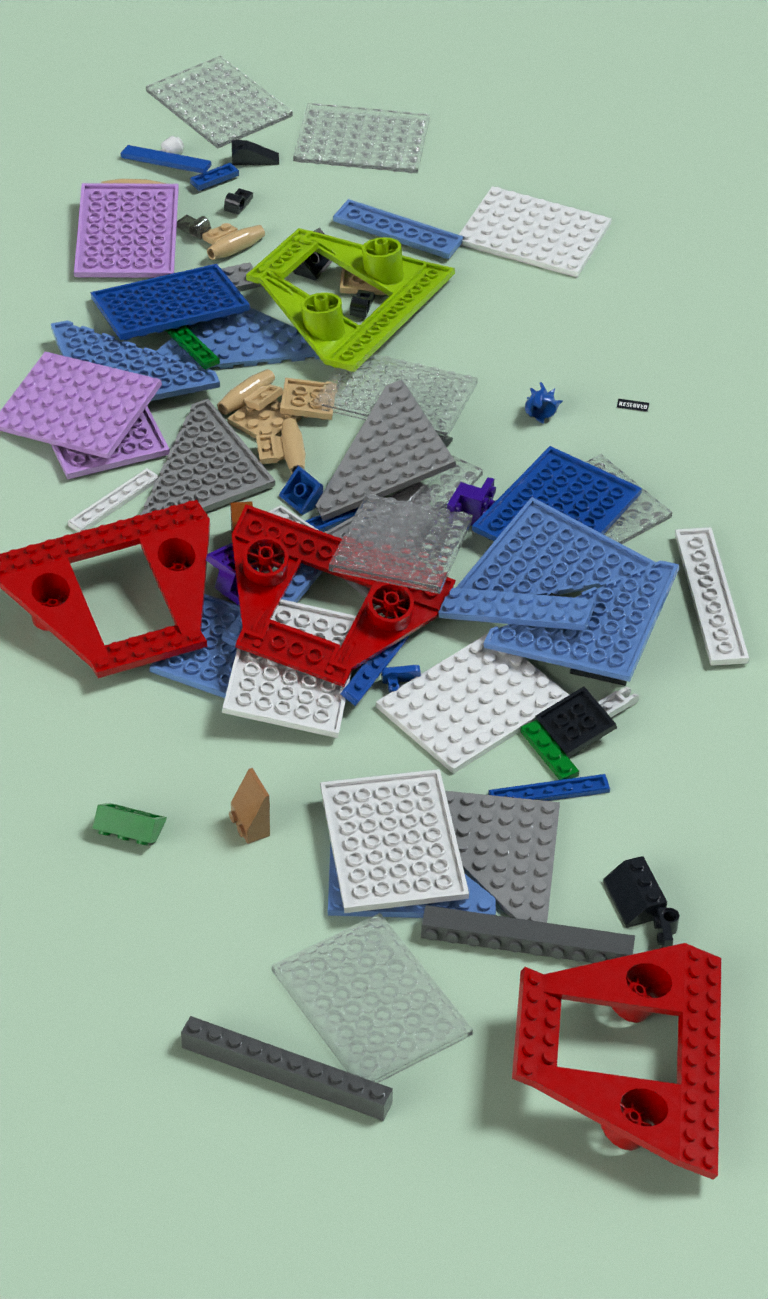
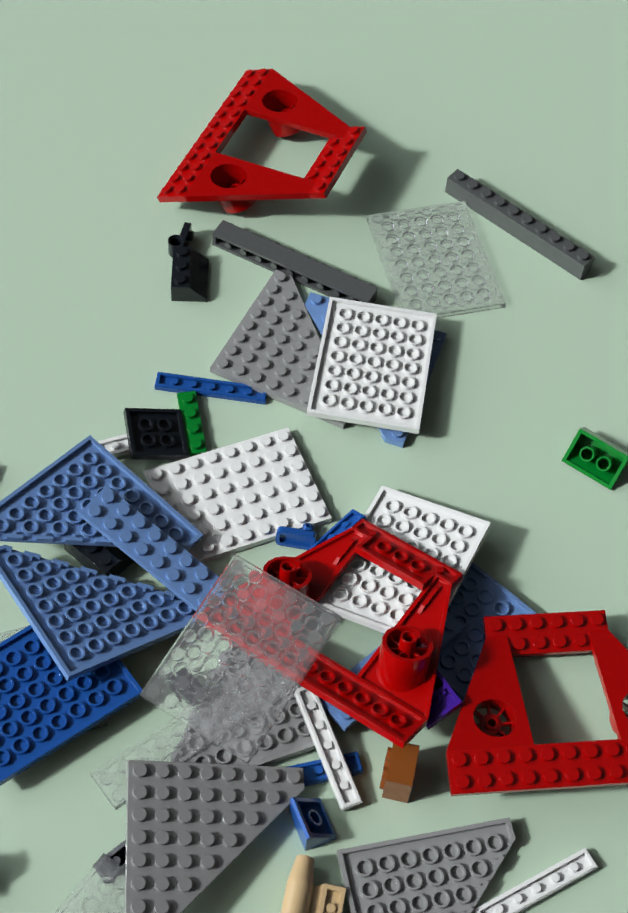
camera: 165 degrees left, 10 degrees up
(251, 809) = (488, 423): medium nougat slope -> none
(473, 499) = (127, 724): dark purple bracket -> none

